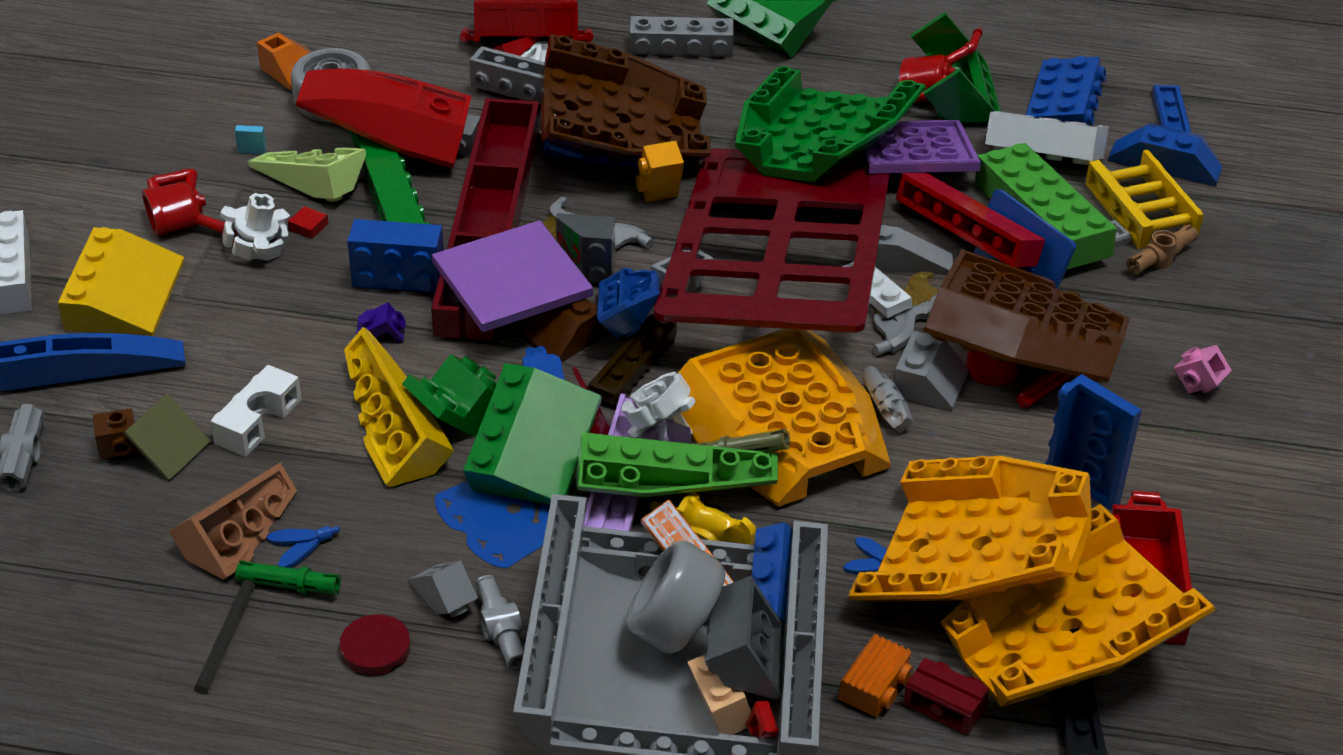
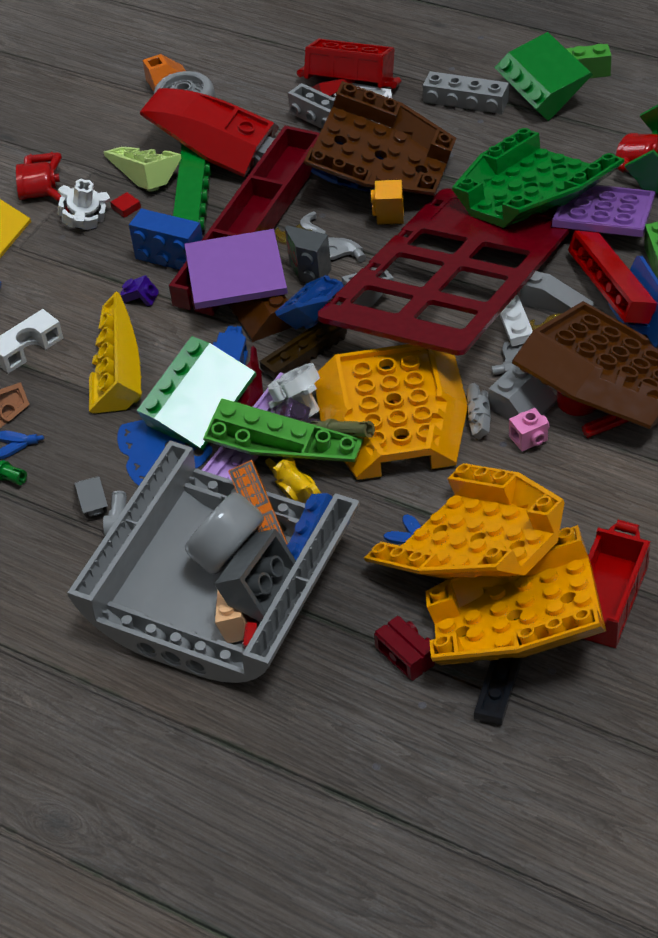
camera: 25 degrees right, 5 degrees up
(250, 139) = (111, 135): medium azure tile -> none
(375, 644) = (29, 525): dark red tile -> none
(456, 392) = (156, 352): green bracket -> none
(876, 675) = (359, 621): orange brick -> none
(960, 409) = (528, 429): none -> bright pink brick
(1094, 436) = (599, 471): blue bracket -> none

